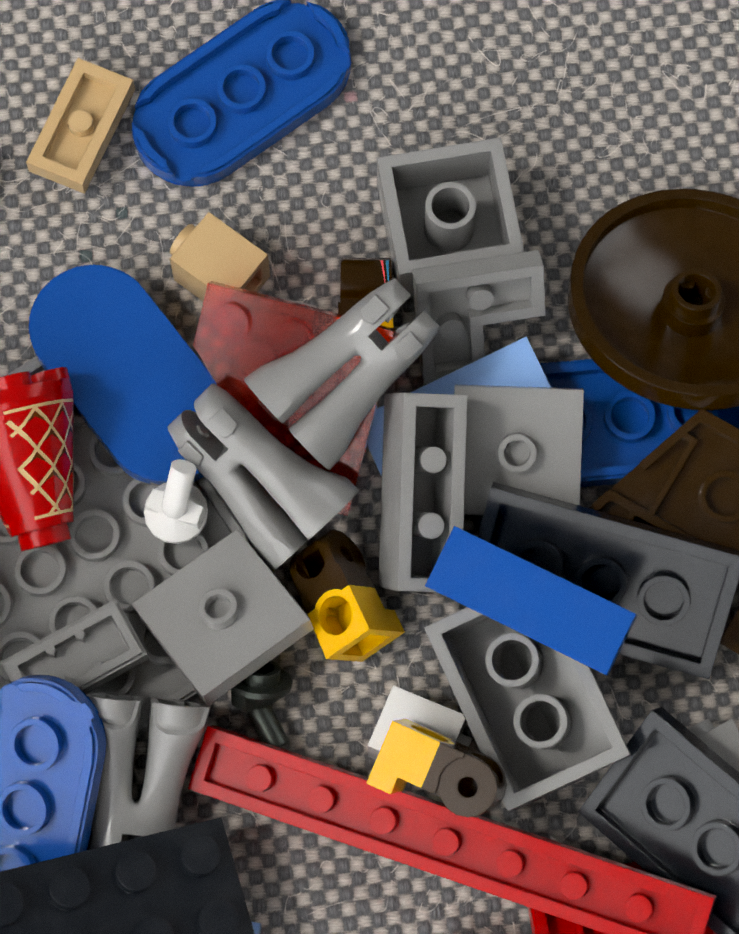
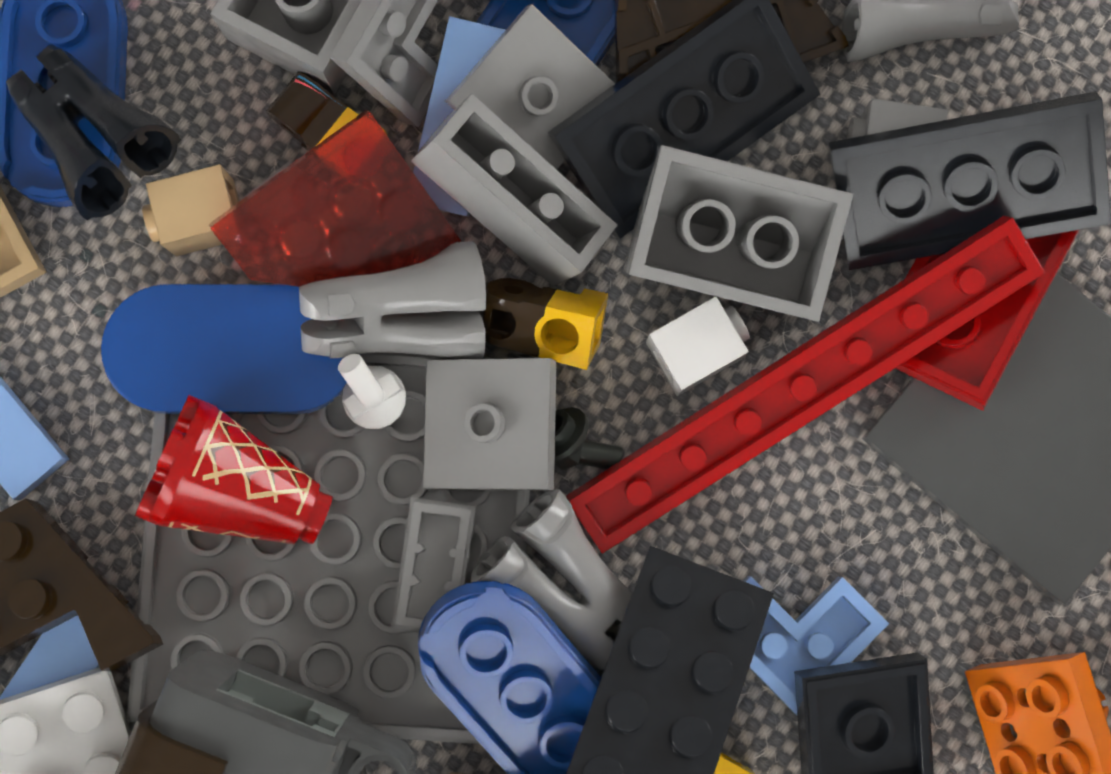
camera: 50 degrees left, 10 degrees up
(237, 172) = (86, 172): none -> black piece
(295, 376) = (348, 214): light grey piece -> none
(458, 774) = (752, 345): leg -> none
(531, 600) = (680, 173): blue tile -> none

